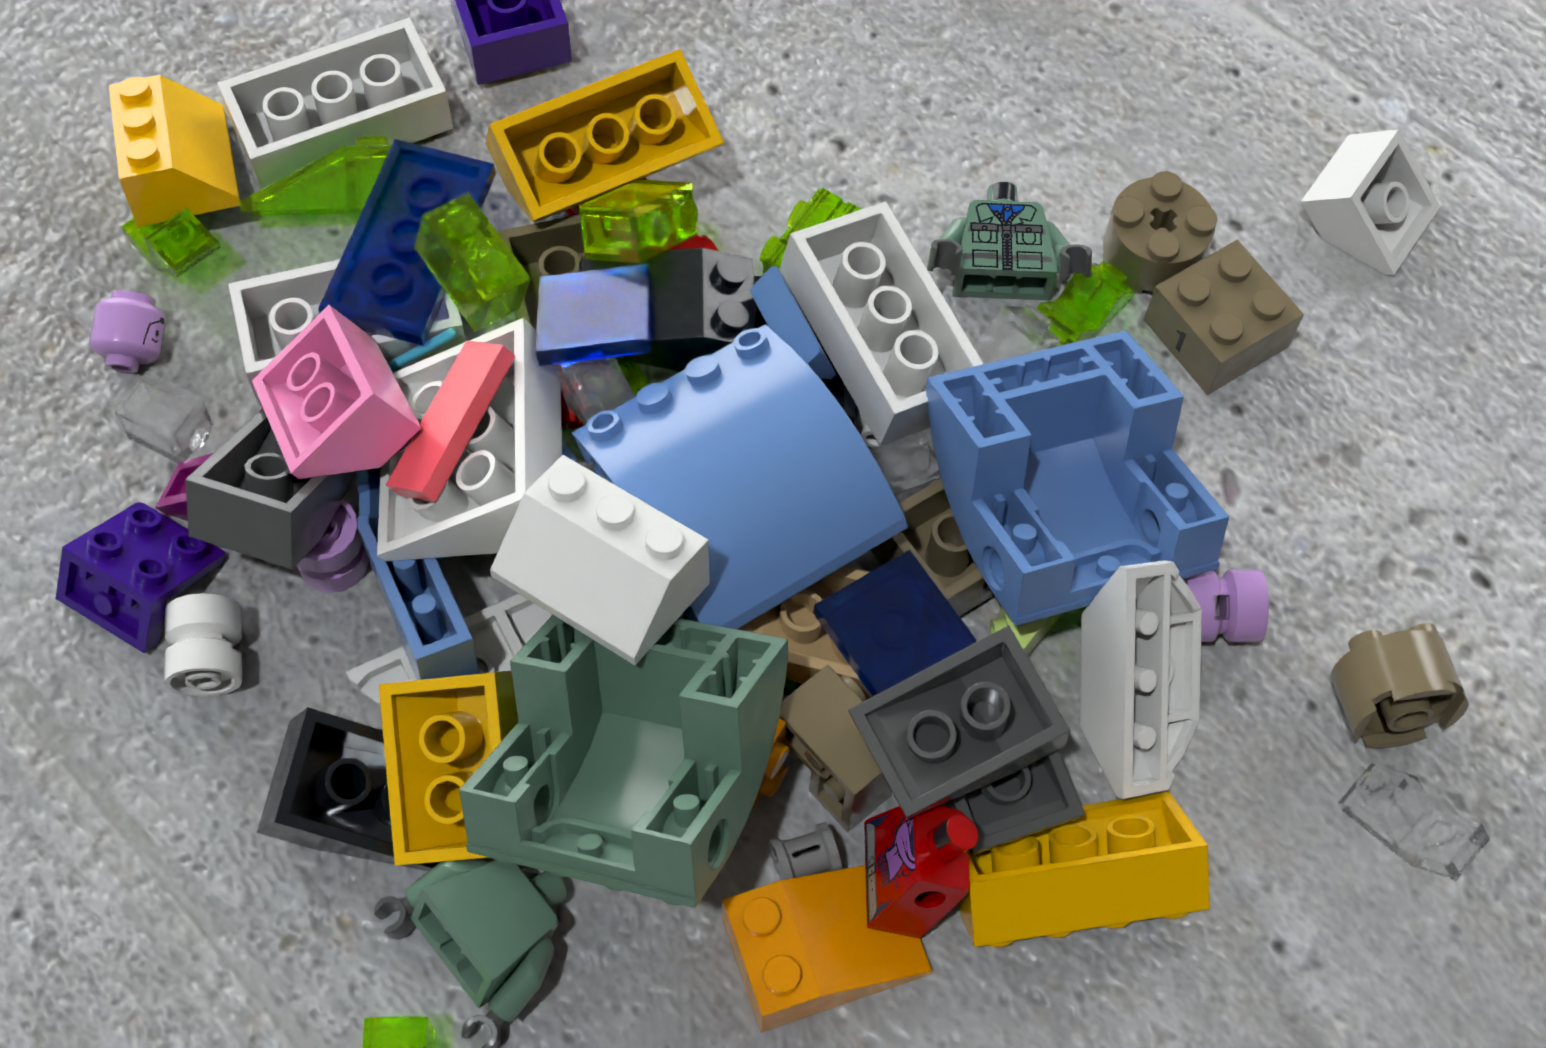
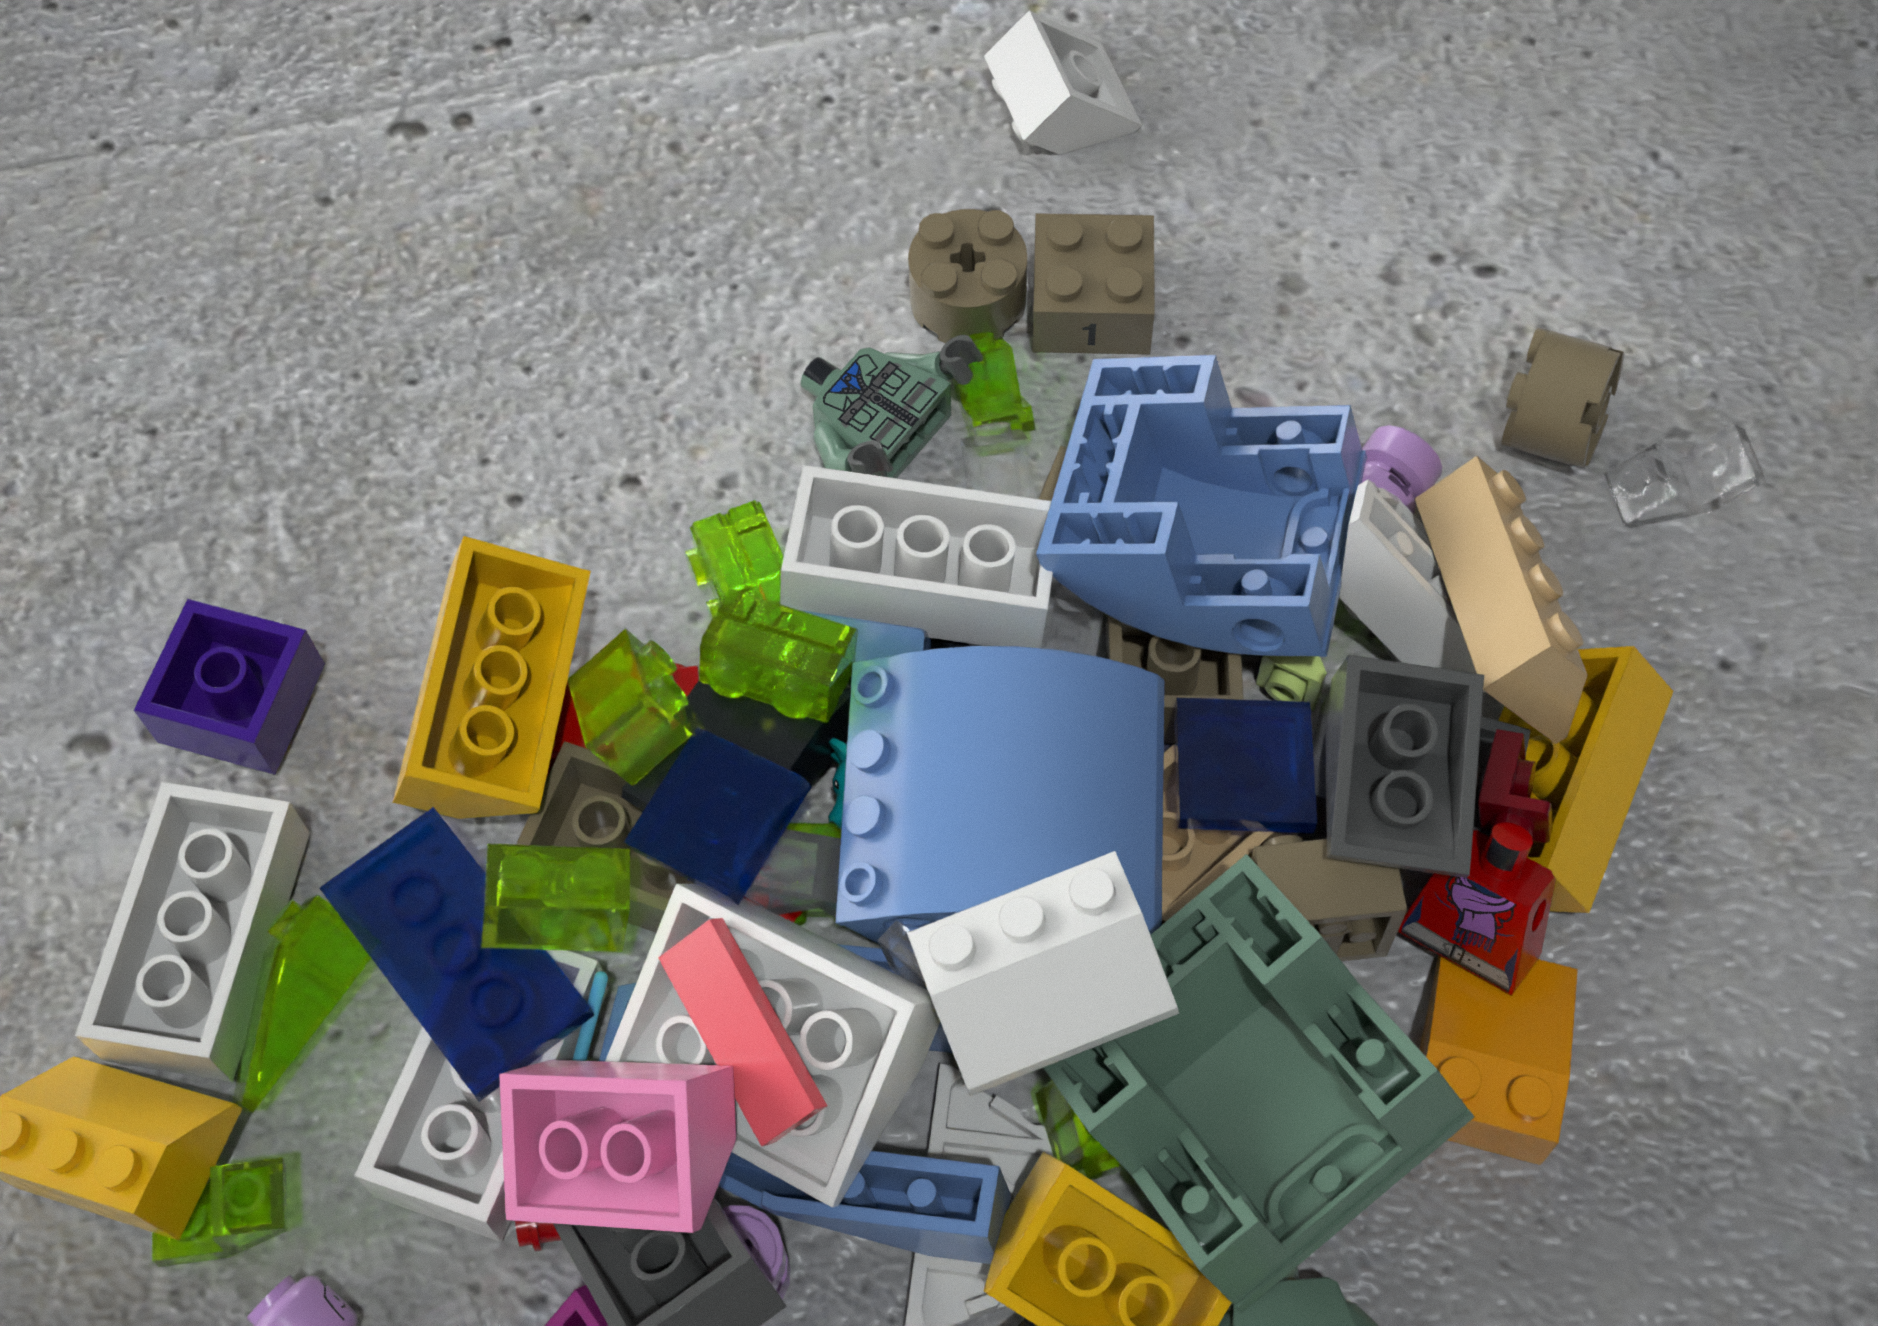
camera: 50 degrees left, 0 degrees up
(728, 273) = (777, 656): none -> clear neon green brick
(805, 854) = (1408, 988): light grey bush -> none
(1009, 811) = (1509, 787): none -> dark red bracket
(1166, 721) = (1505, 595): none -> tan slope

